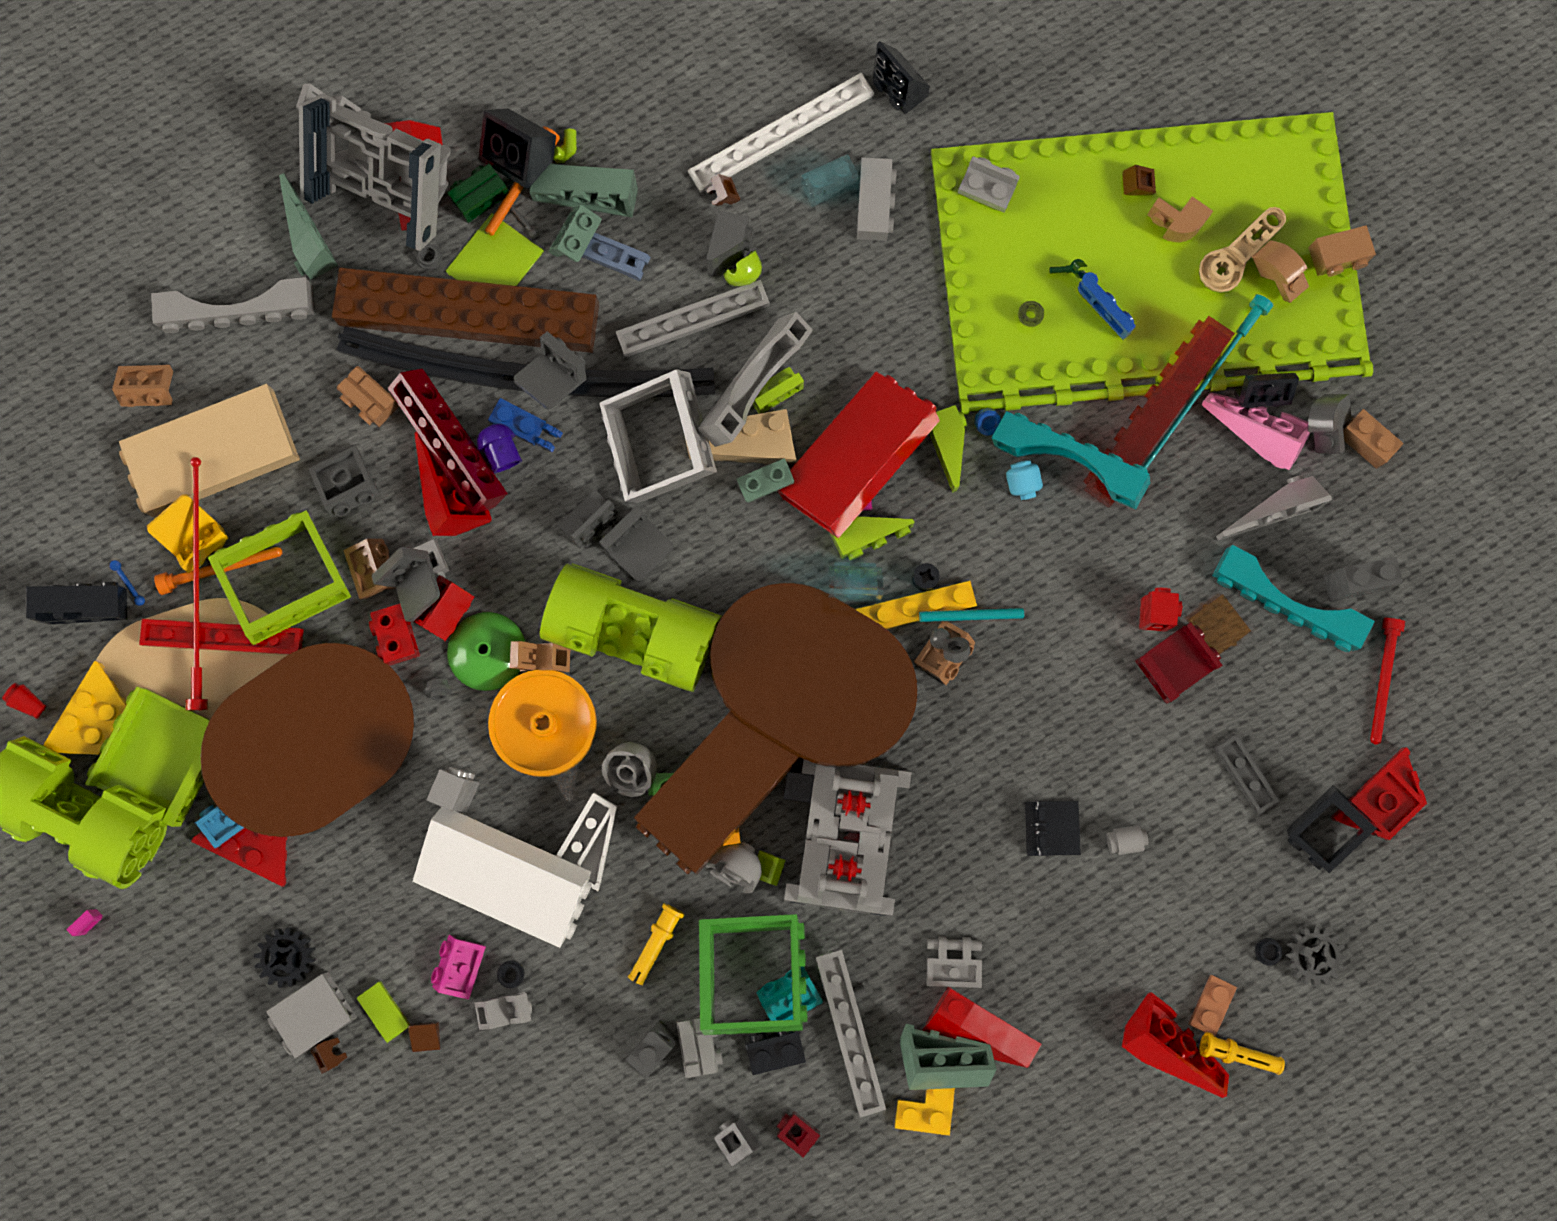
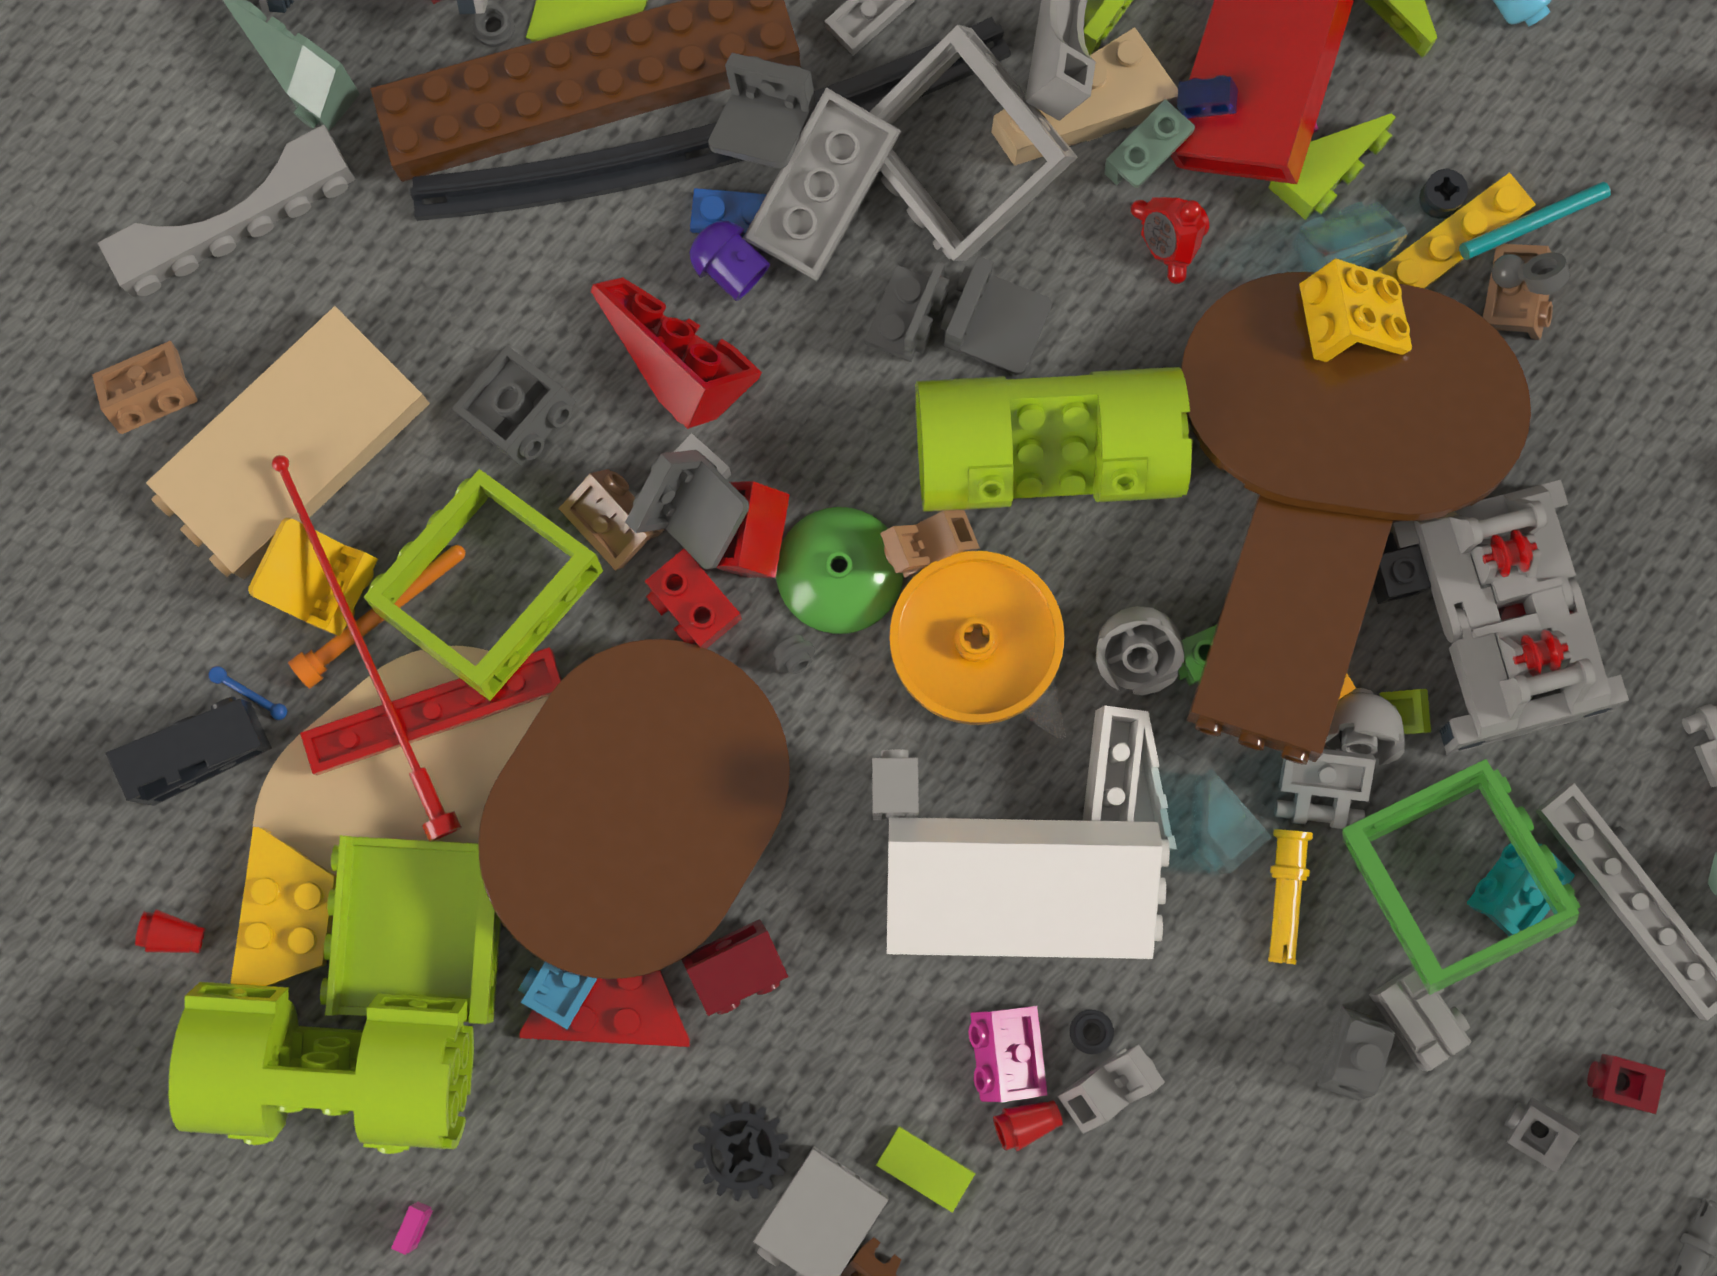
camera: 20 degrees left, 0 degrees up
(324, 853) = (735, 968): none -> dark red brick
(368, 396) = (494, 266): medium nougat brick -> none
(424, 1036) = (1004, 1179): reddish brown slope -> none
(447, 440) = (645, 280): dark red brick -> none
(450, 1010) = (1026, 1123): none -> red cone
(569, 427) = (822, 184): none -> light grey tile
(630, 889) = (1222, 826): none -> clear light blue slope
(706, 885) = (1335, 775): none -> light grey plate
(759, 535) = (1172, 231): none -> red rock
(774, 1051) = (1534, 978): black bracket -> none
(807, 467) = (1207, 97): none -> clear blue piece
(836, 626) = (1353, 306): none -> yellow bracket

